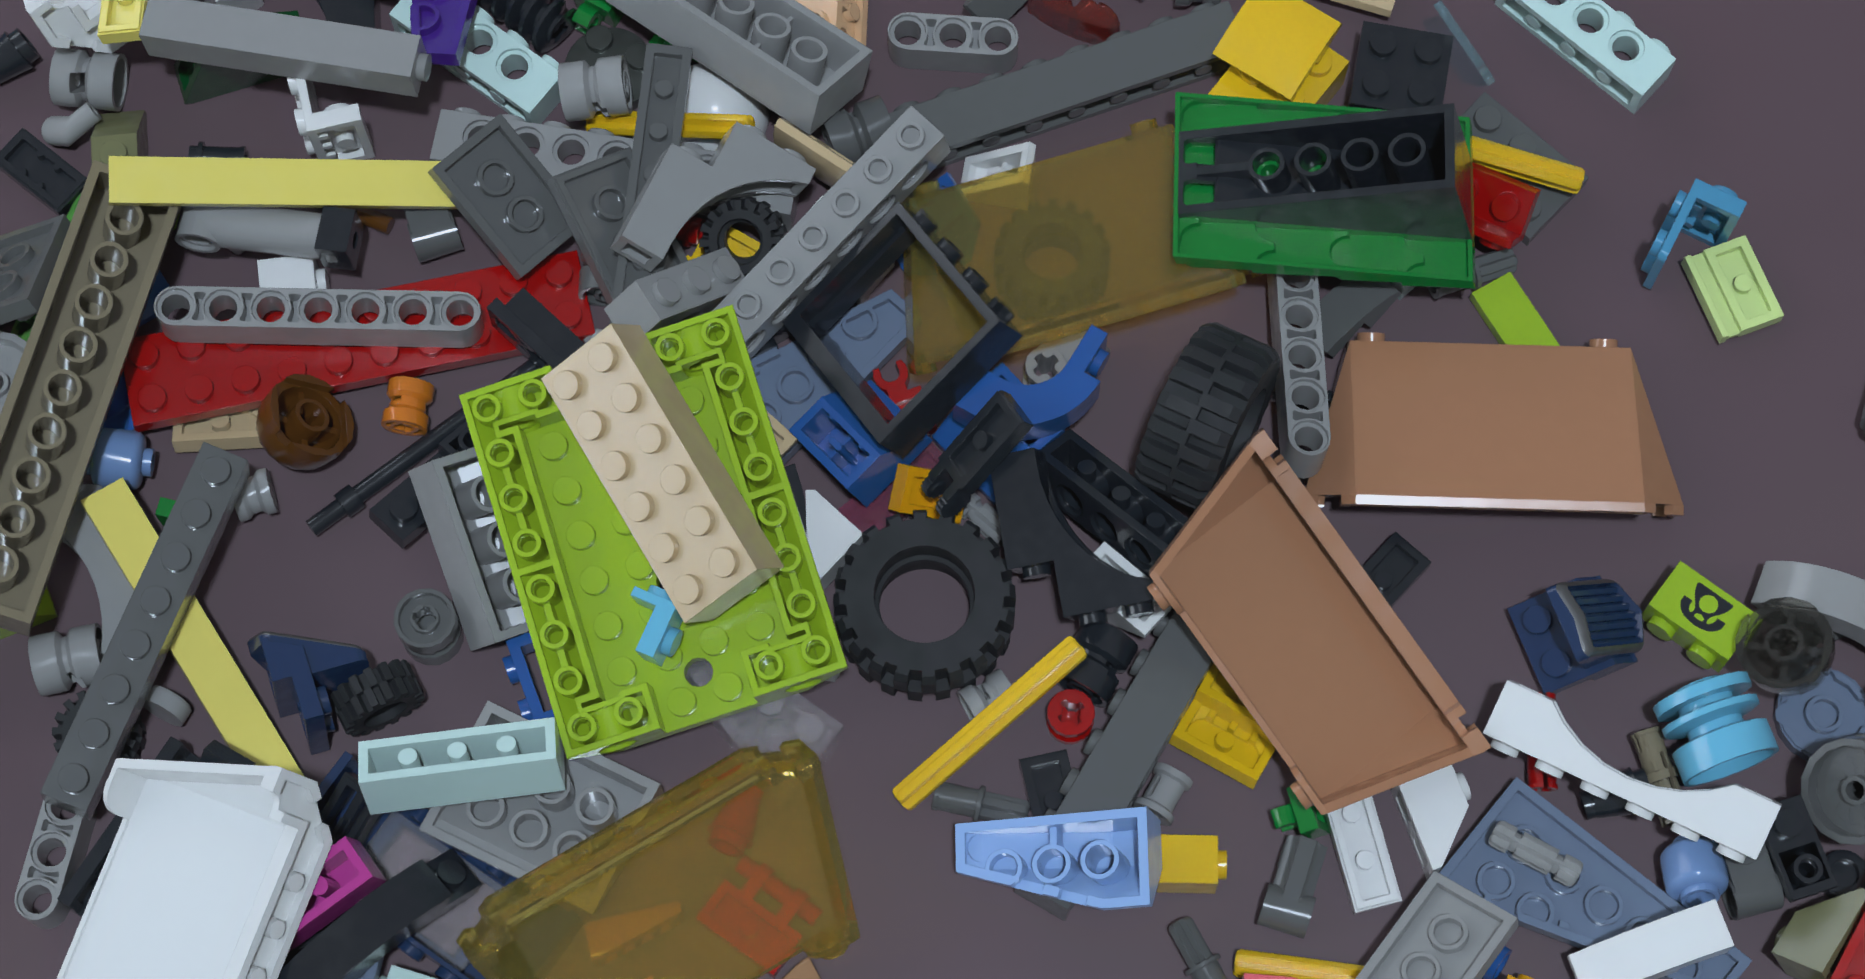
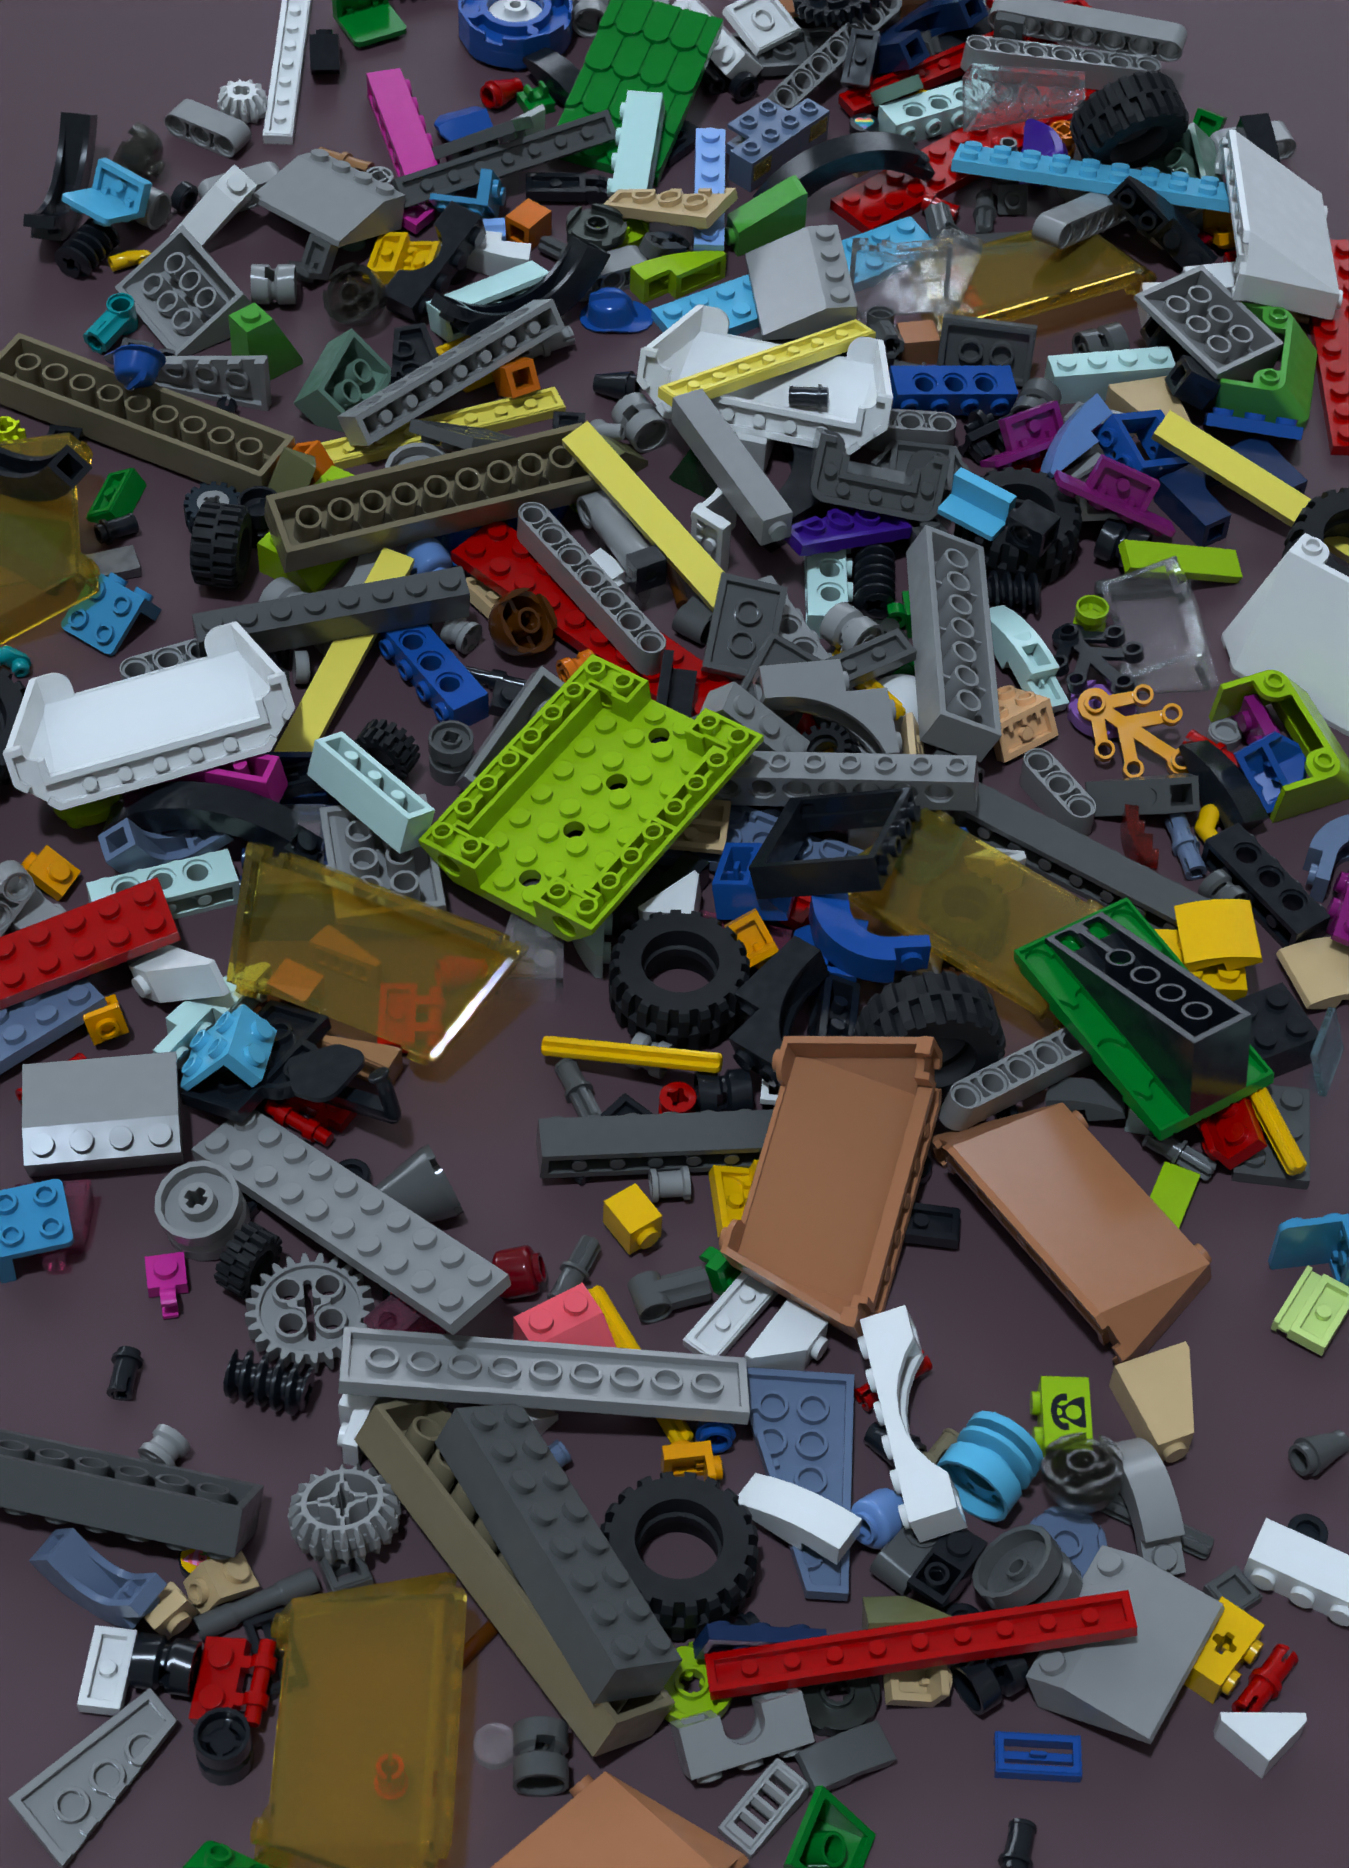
camera: 50 degrees right, 20 degrees down
(305, 675) = (367, 699): dark blue piece -> none
(313, 548) = (436, 674): none -> blue brick
(662, 473) = (627, 765): tan brick -> none
(662, 631) = (536, 830): medium azure bracket -> none
(976, 453) = (788, 923): black hinge -> none
(1076, 857) = (578, 1130): light blue wedge -> none
(1535, 853) = (808, 1411): light grey axle -> none
(1579, 631) = (989, 1354): dark blue piece -> none
(1737, 510) = (1158, 1399): none -> tan slope

